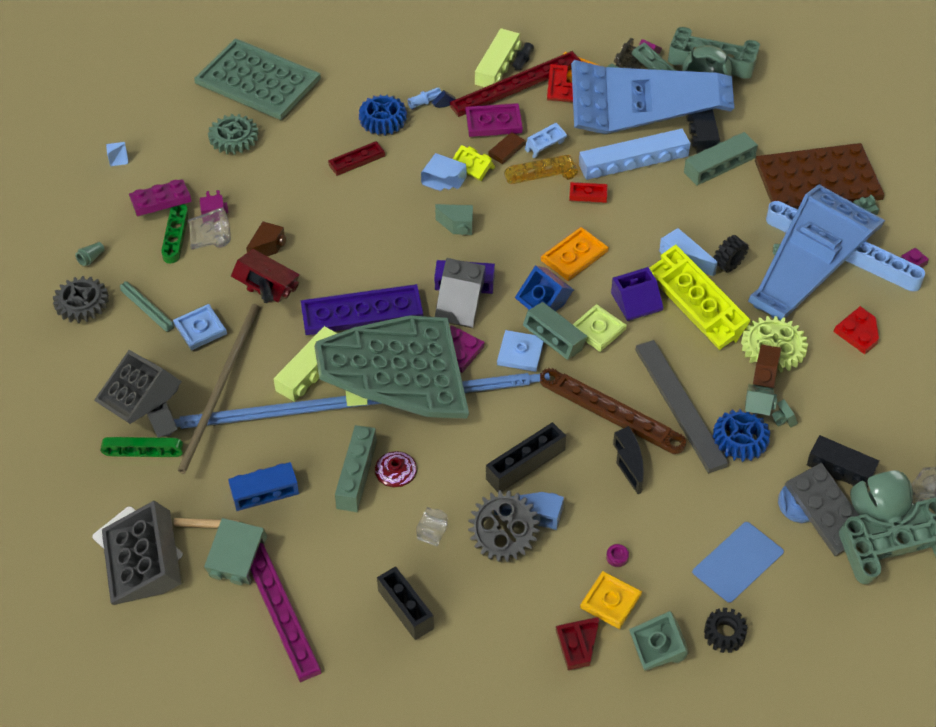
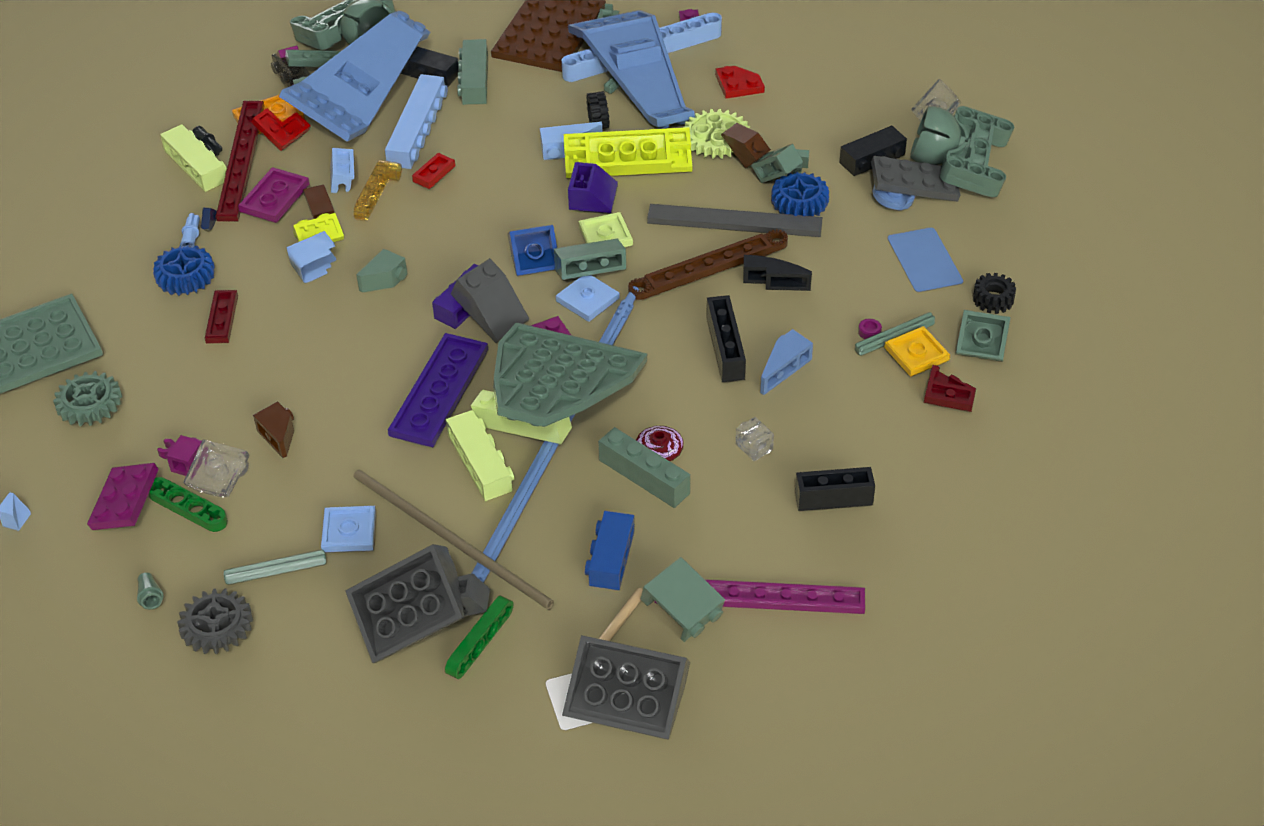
camera: 60 degrees left, 5 degrees down
(266, 276) = (338, 438): dark red piece -> none
(519, 514) = (795, 383): dark grey gear -> none
(574, 254) = (498, 212): light orange tile -> none
(624, 575) = (878, 340): none -> sand green axle

